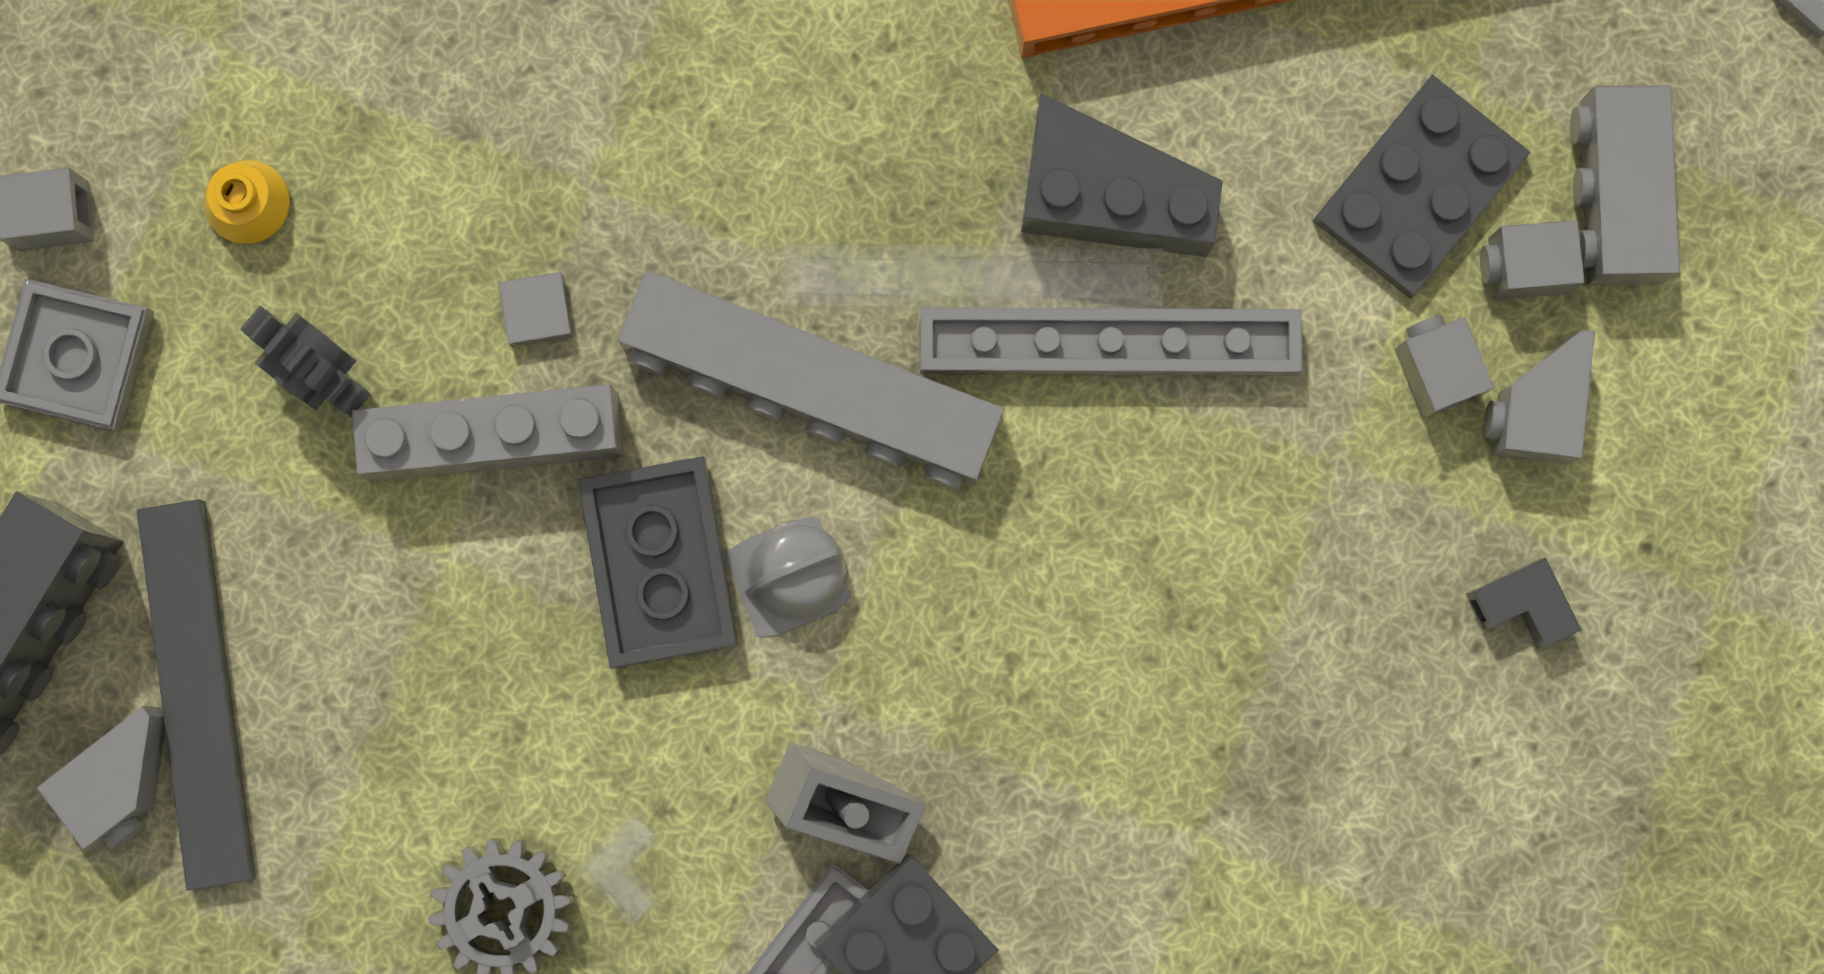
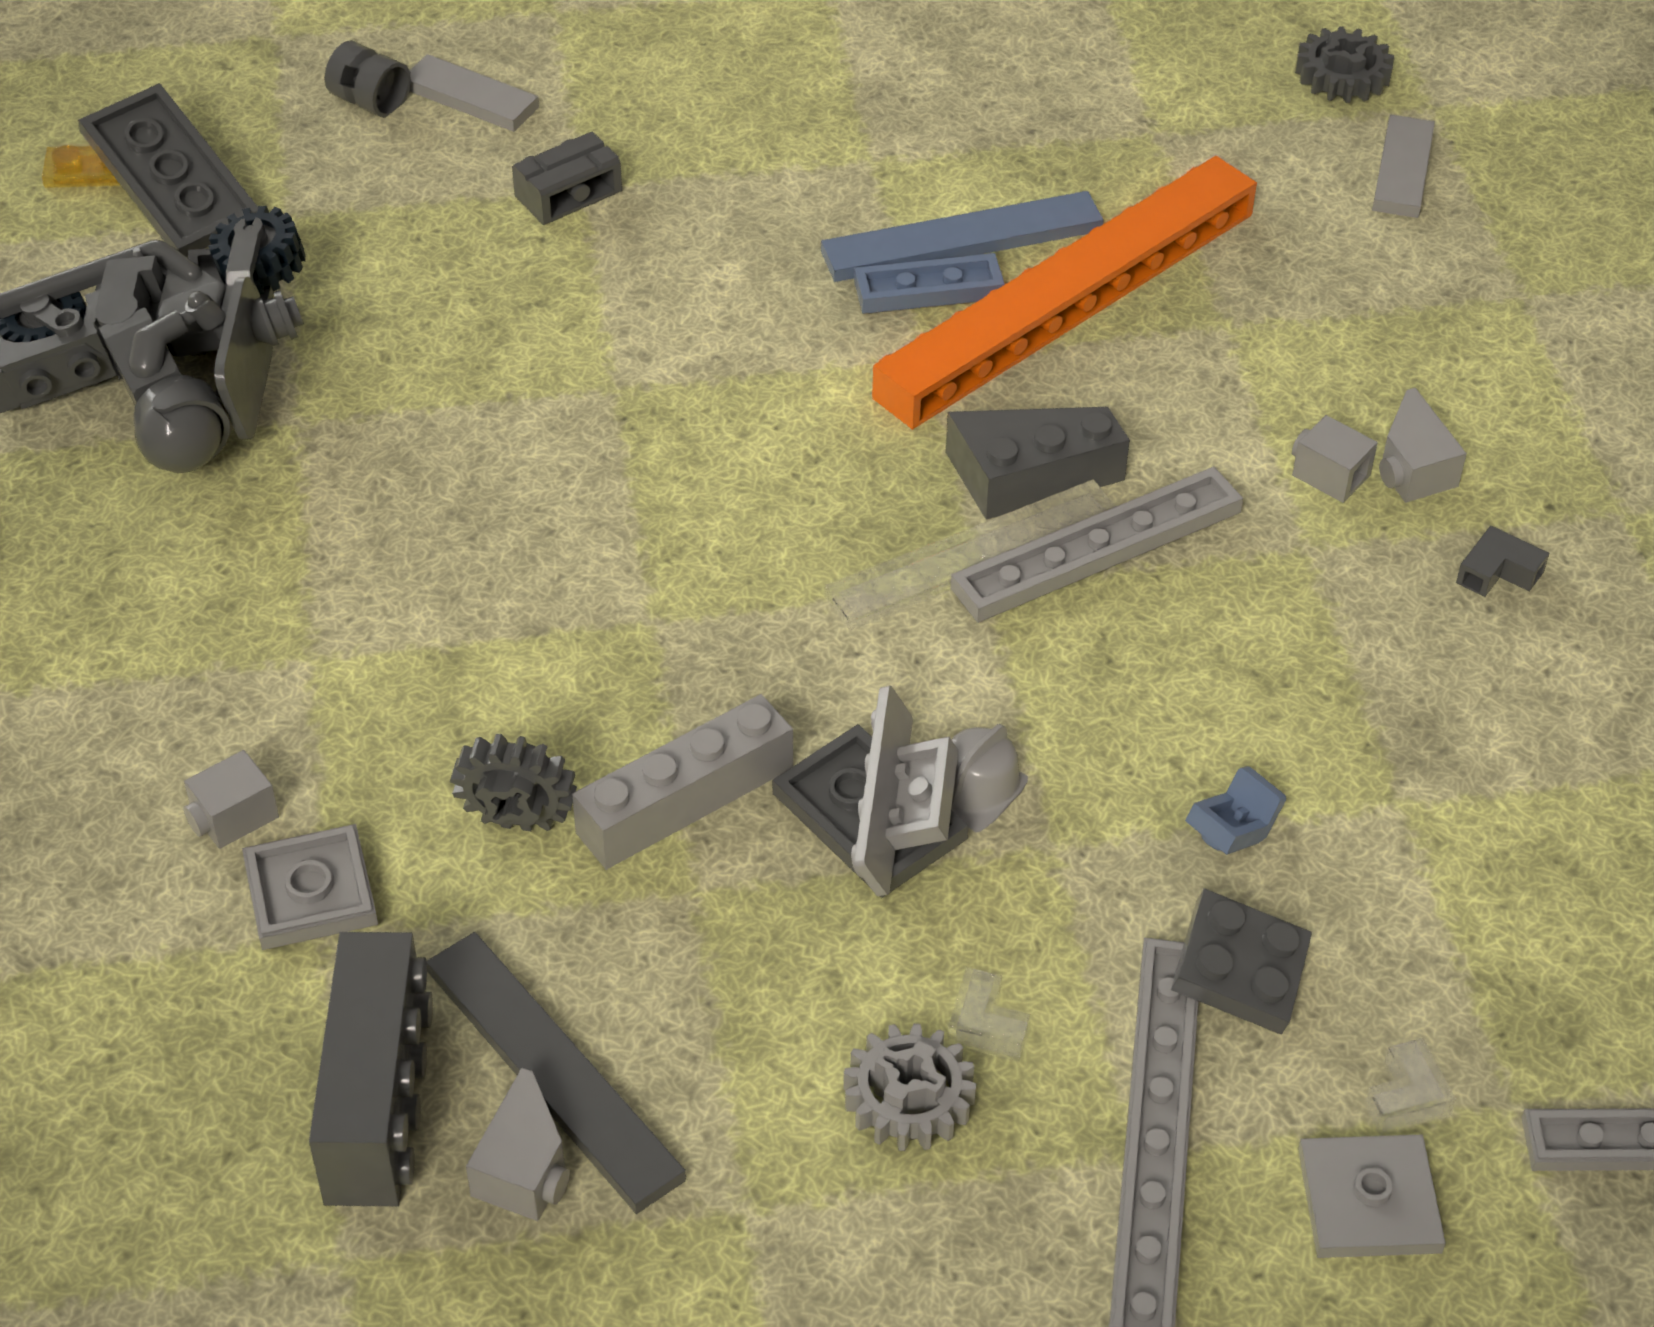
camera: 30 degrees left, 35 degrees down
(246, 201) = (391, 733): yellow cone -> none
(535, 309) = (663, 705): light grey tile -> none
(682, 585) = (904, 792): none -> light grey bracket
(810, 379) = (904, 648): light grey brick -> none
(843, 804) = (1123, 882): light grey slope -> none
(1014, 776) = (1240, 815): none -> sand blue bracket
(1421, 186) = (1236, 383): dark grey plate -> none
(1533, 260) = (1343, 380): light grey brick -> none
(1627, 184) = (1369, 321): light grey brick -> none

